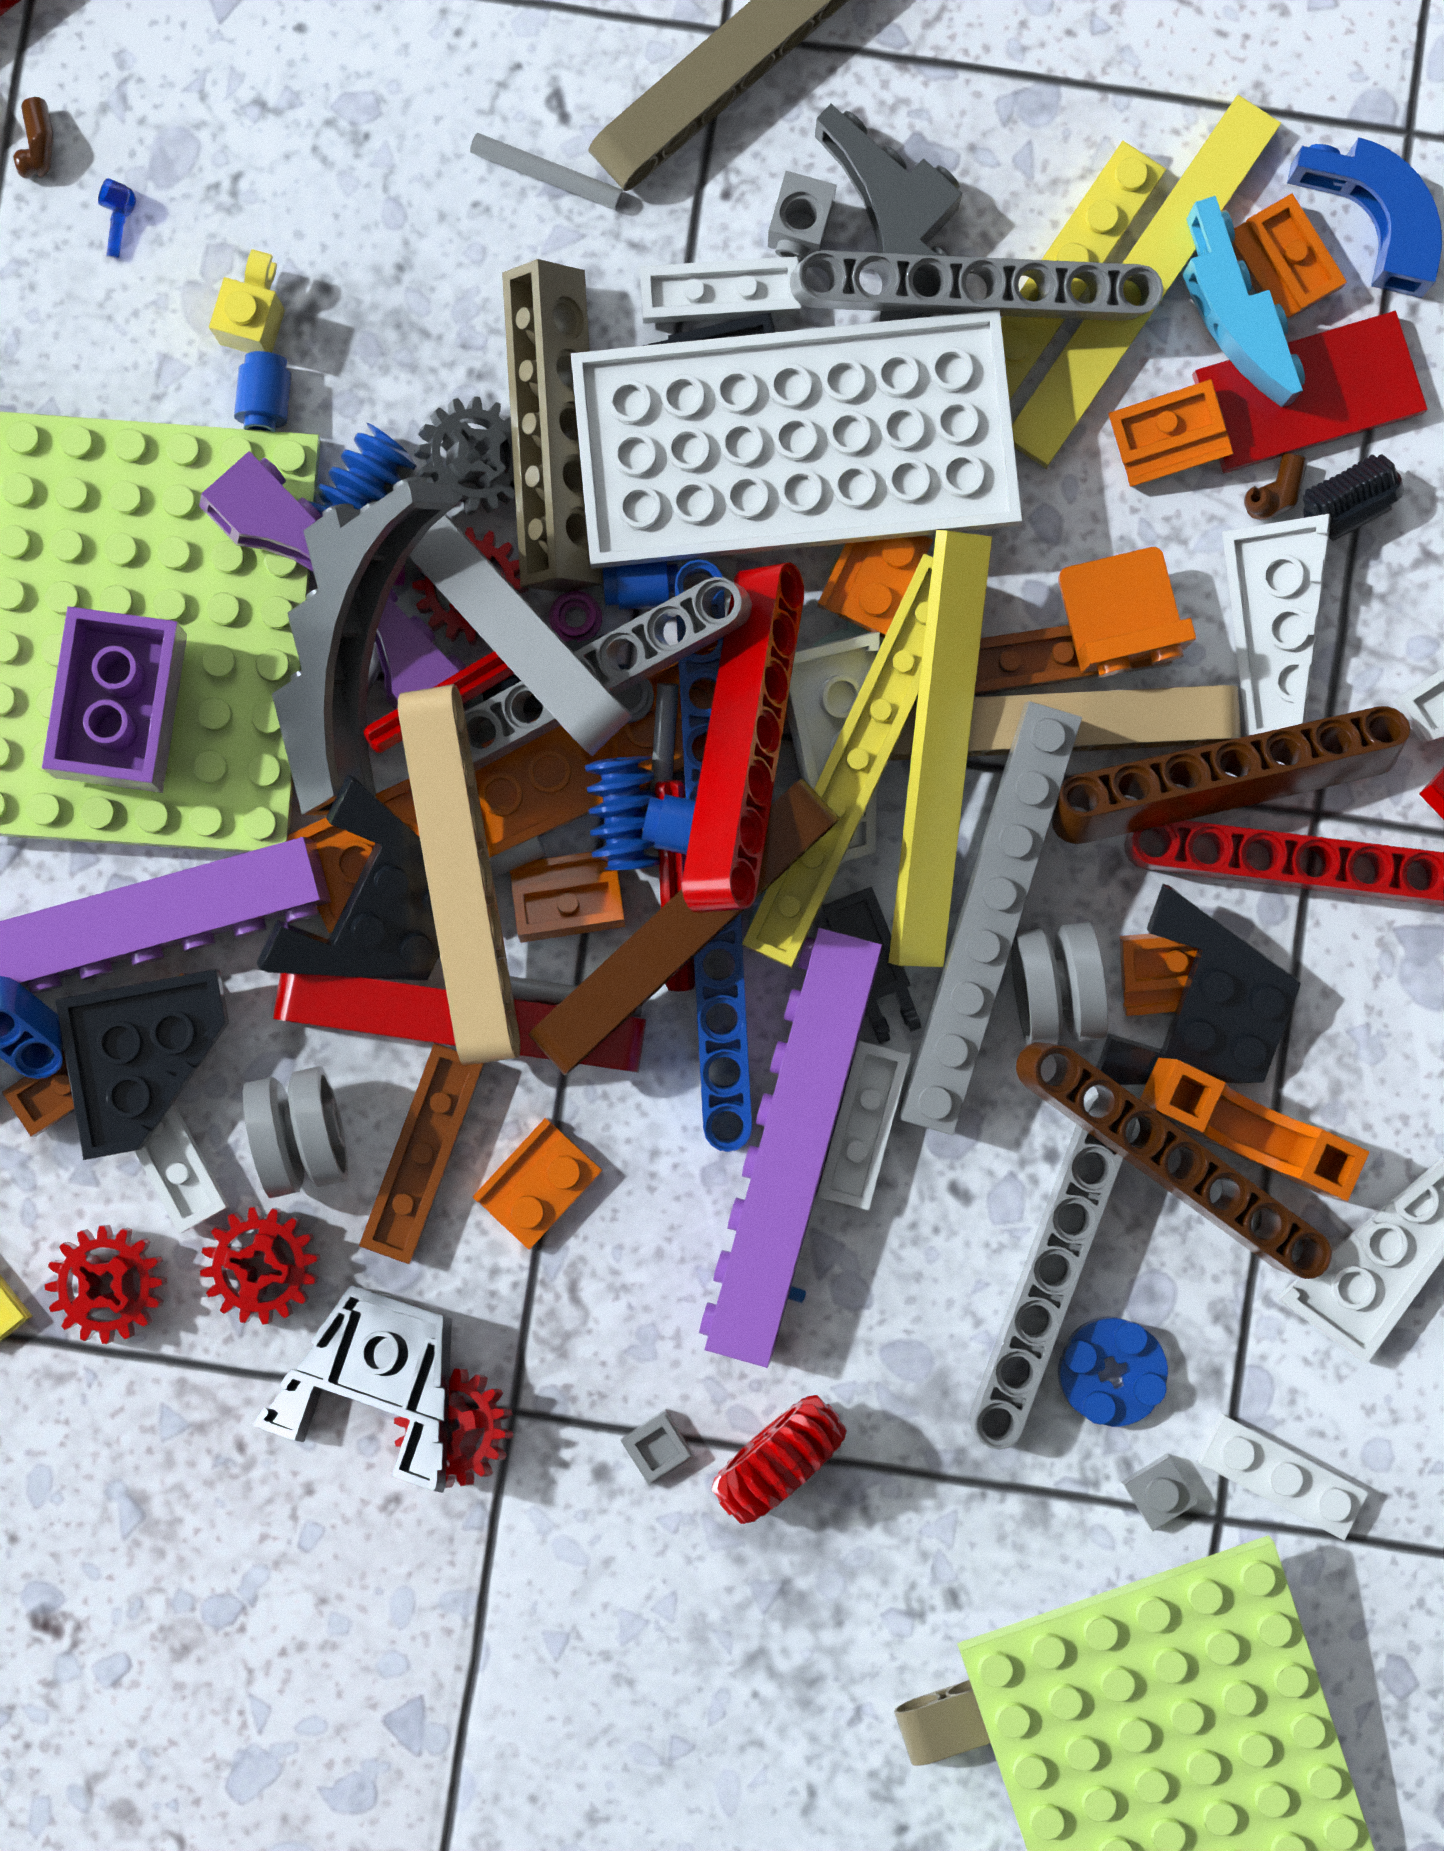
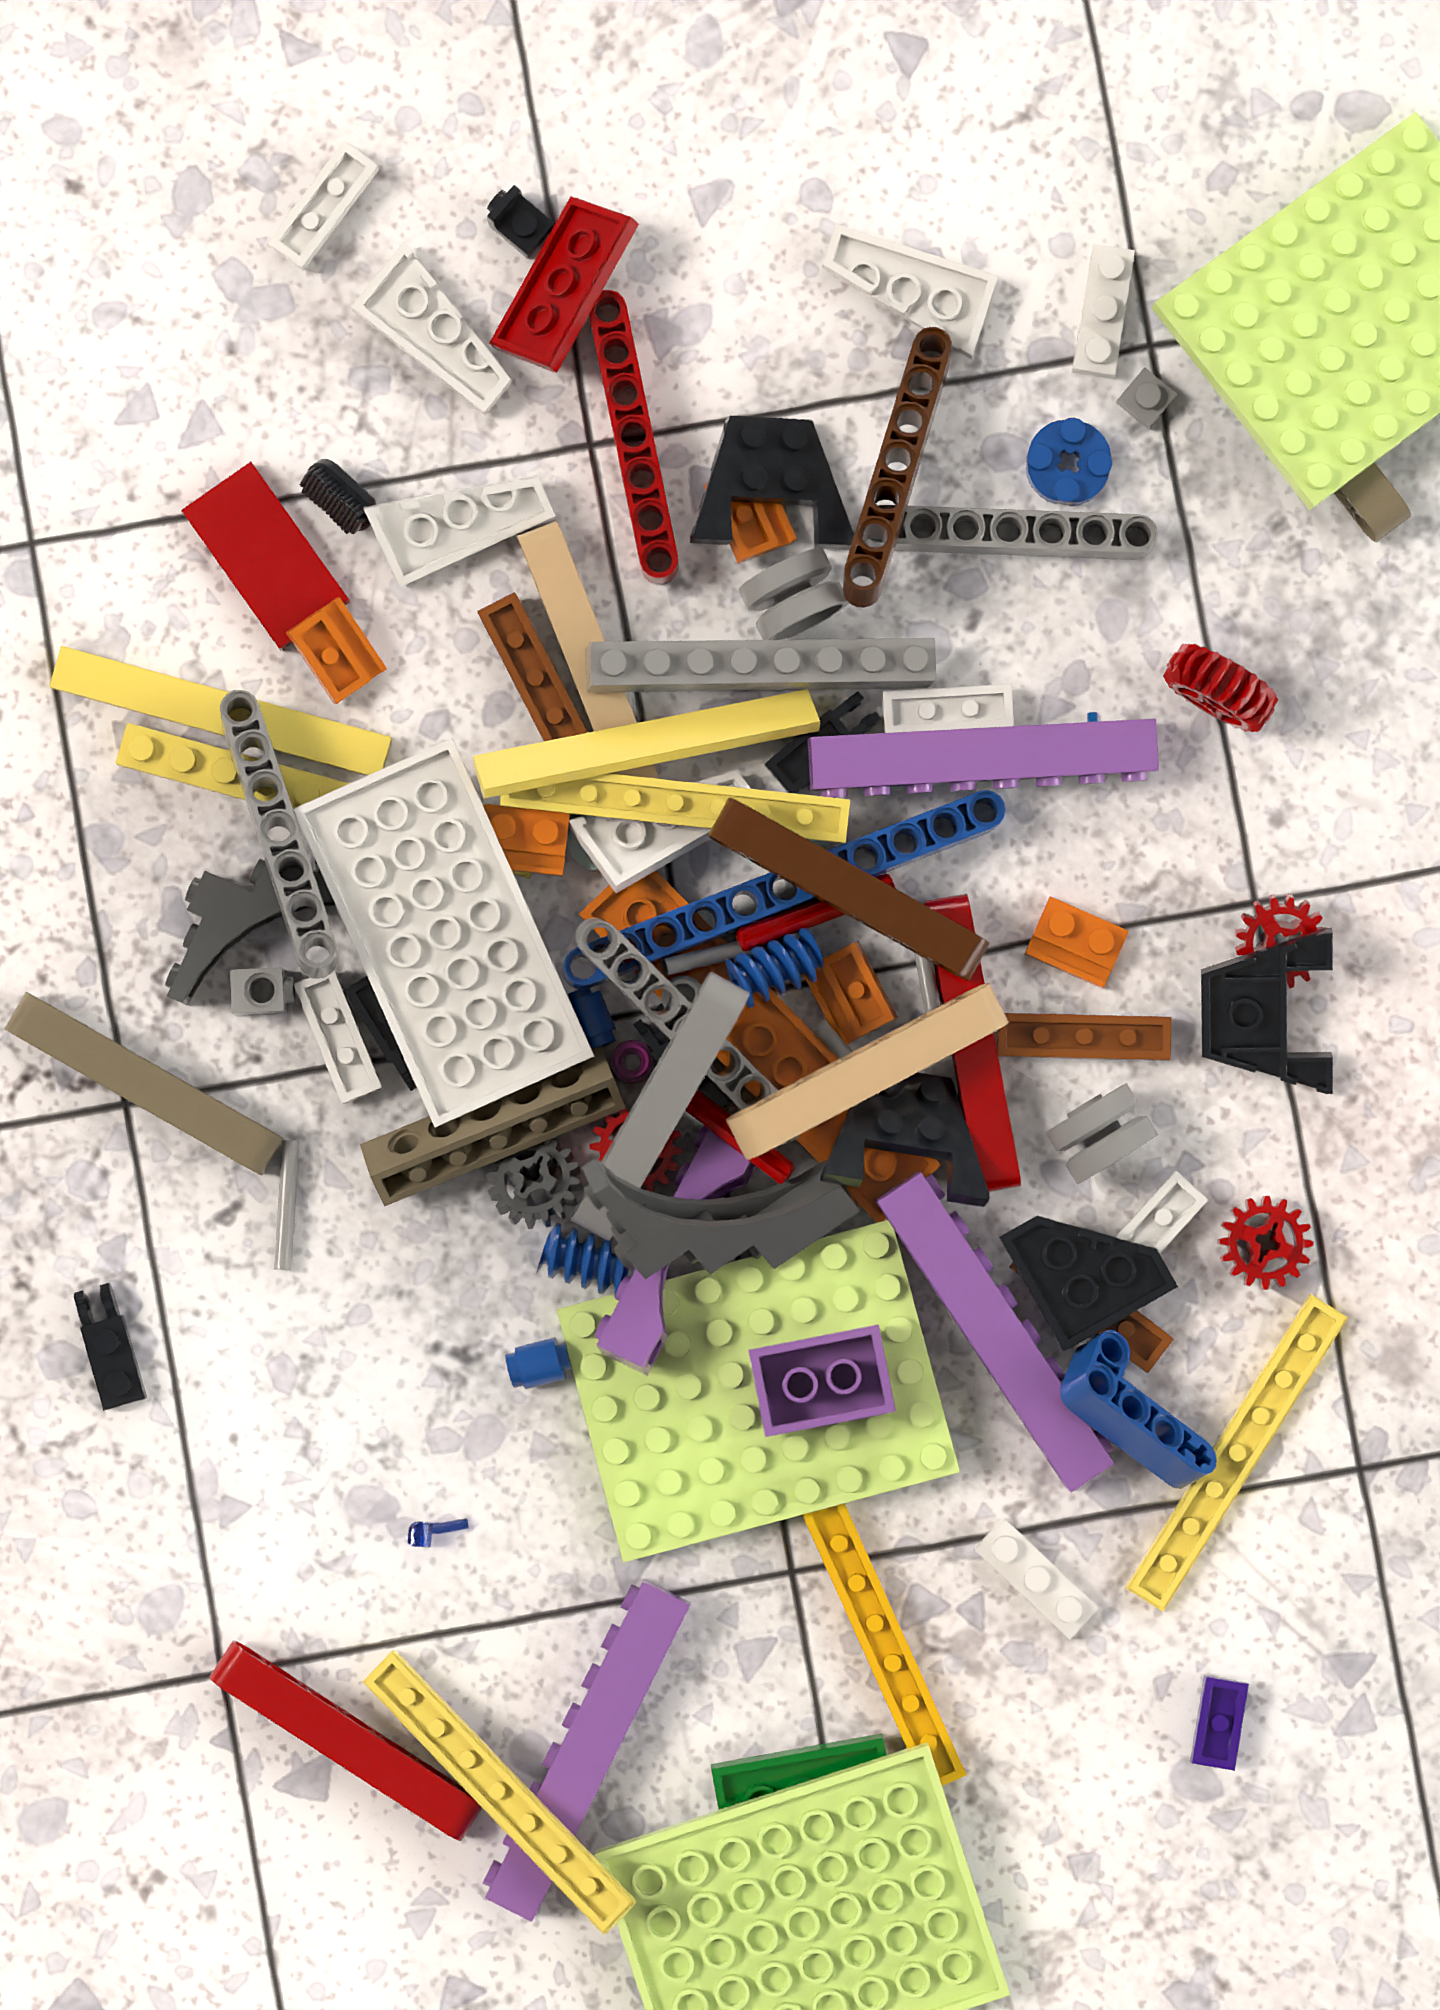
camera: 105 degrees left, 0 degrees up
(40, 139) = (392, 1611): reddish brown arm -> none
(249, 312) = (480, 1395): light yellow brick -> none
(253, 1288) = (1211, 1151): red gear -> none
(657, 1447) = (1243, 784): light grey tile -> none
(669, 823) = (773, 914): blue brick -> none
(743, 744) = (695, 888): red beam -> none
(1123, 612) = (492, 640): orange bracket -> none
(1244, 326) = (238, 619): medium azure slope -> none
(1252, 1130) = (852, 416): orange arch -> none
(1279, 495) = (354, 552): reddish brown arm -> none
(1287, 257) = (168, 608): orange plate -> none
(1361, 747) = (606, 526): reddish brown beam -> none
(1392, 198) = (95, 535): blue arch -> none

